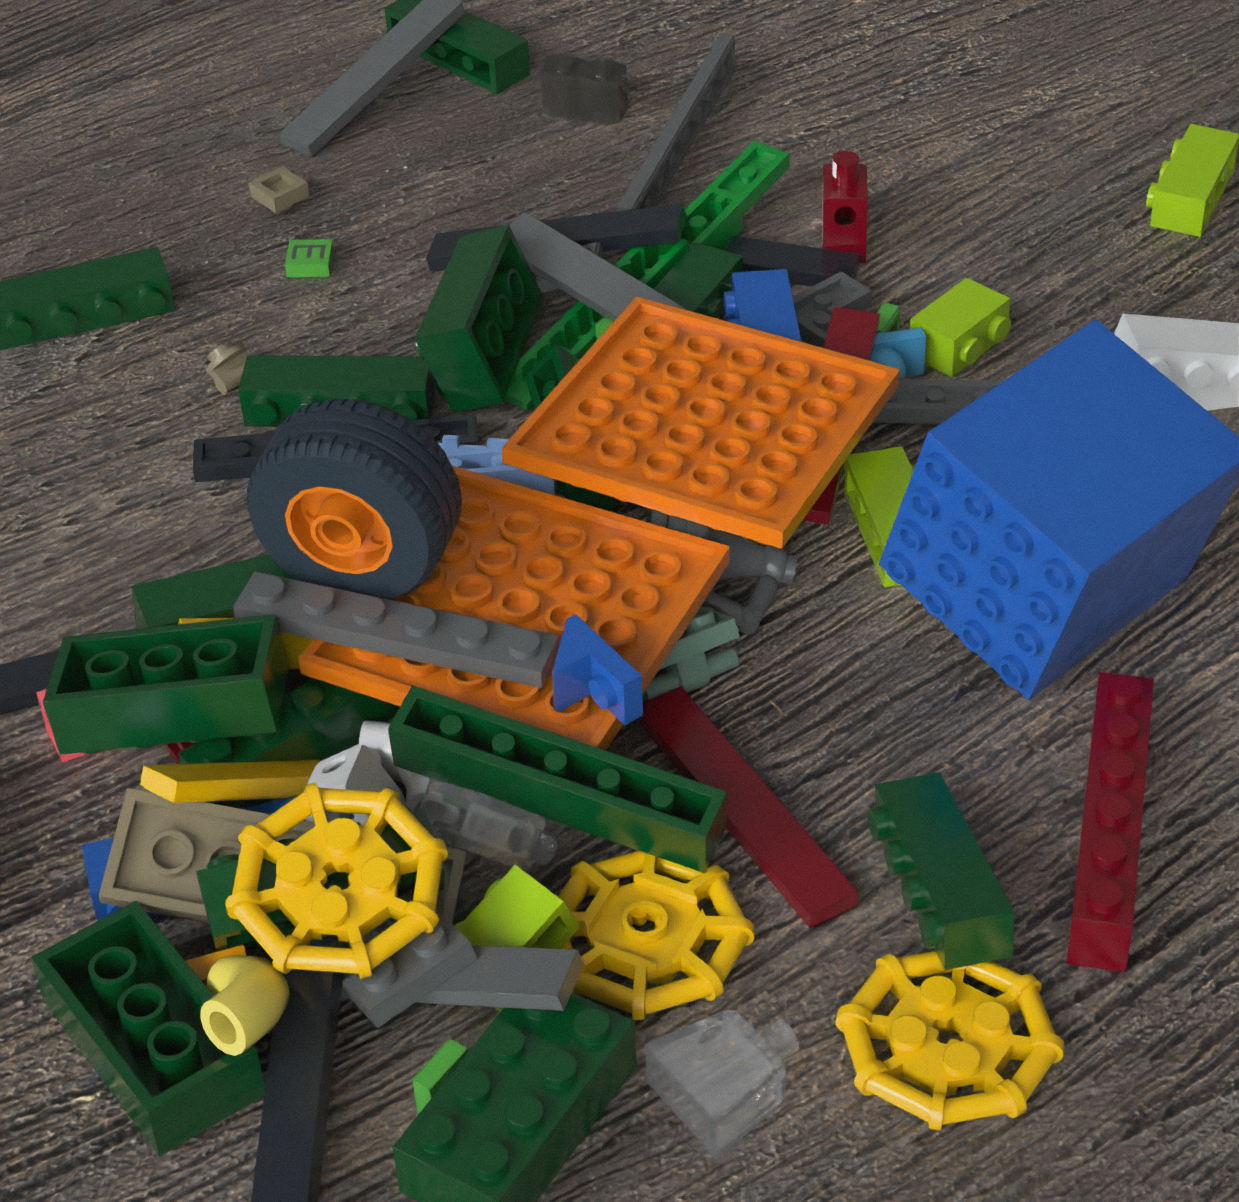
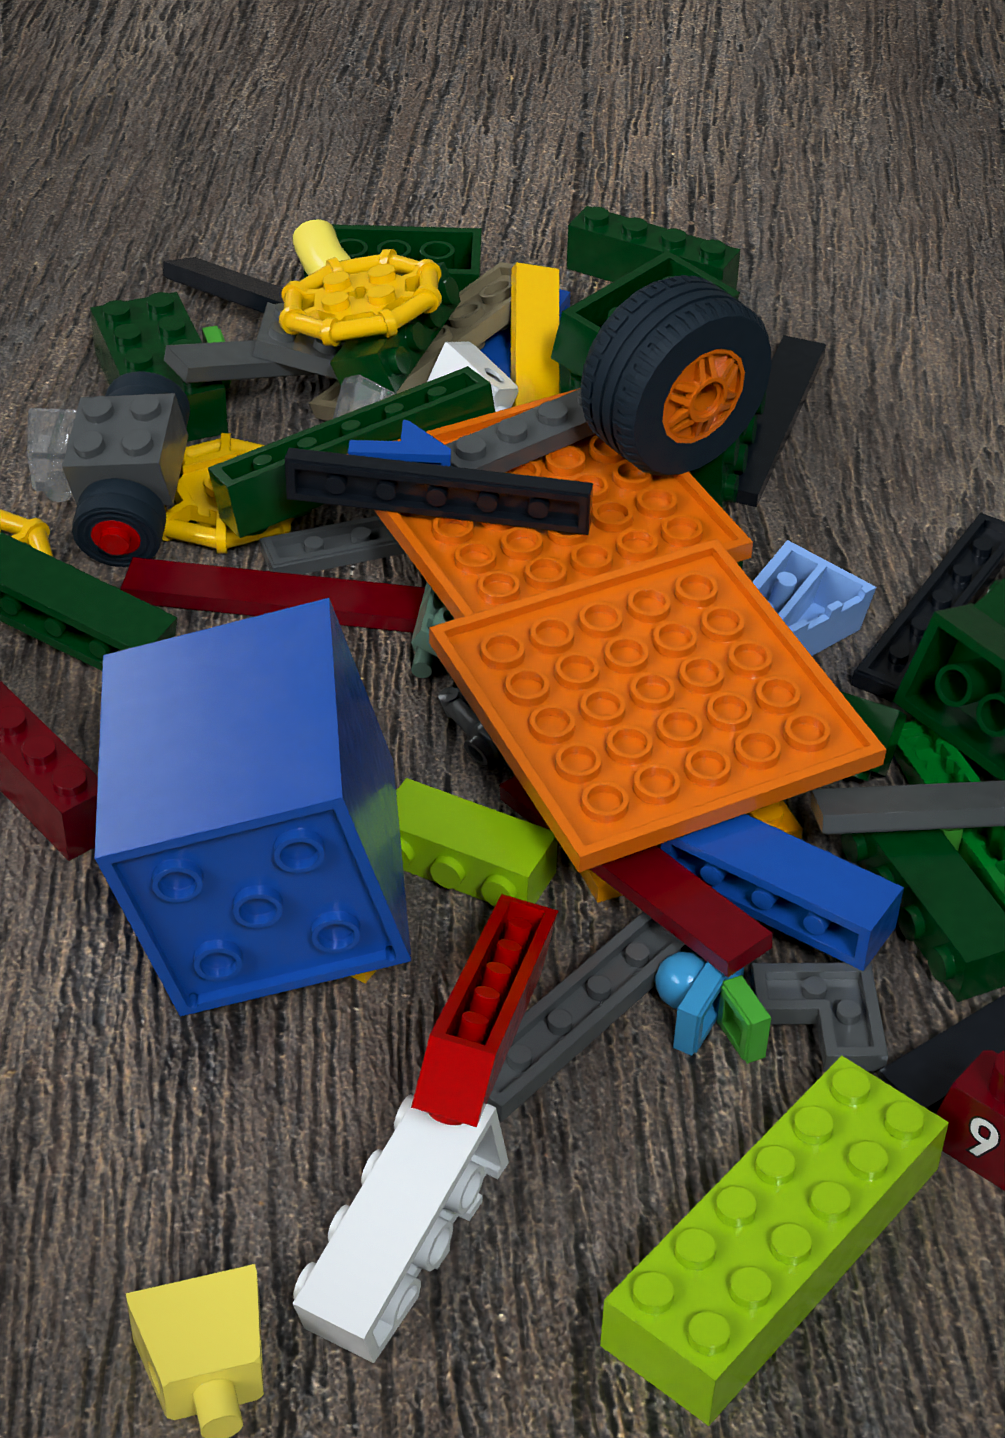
camera: 125 degrees right, 0 degrees up
(519, 914) = (278, 409): lime brick -> none
(584, 596) = (439, 491): none -> black tile
(725, 941) = (126, 466): none -> brick
(962, 325) = (694, 1090): lime brick -> none
(1020, 252) = (771, 1238): none -> lime brick
(1123, 296) = (484, 1013): none -> red brick

